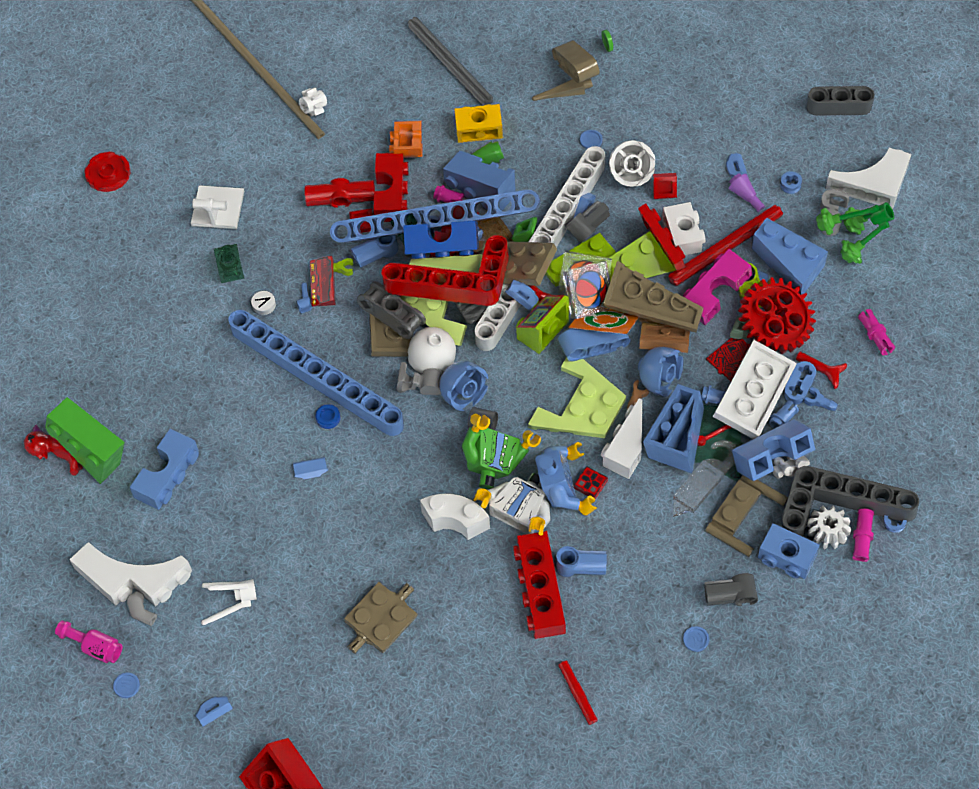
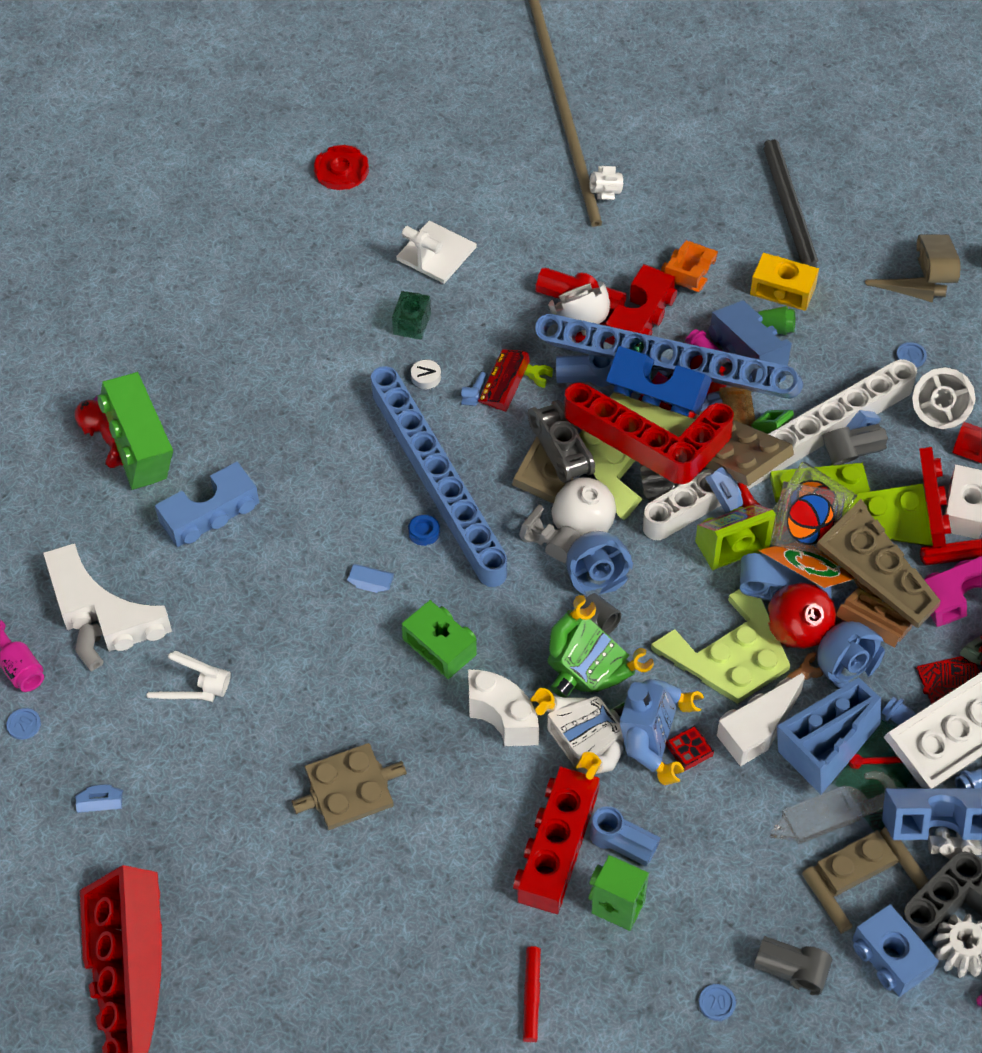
camera: 25 degrees right, 5 degrees down
(351, 203) = (583, 304): none -> white cylinder
(384, 487) = (439, 638): none -> bright green brick
(600, 600) = (618, 892): none -> bright green brick
(618, 358) = (801, 615): none -> red cylinder

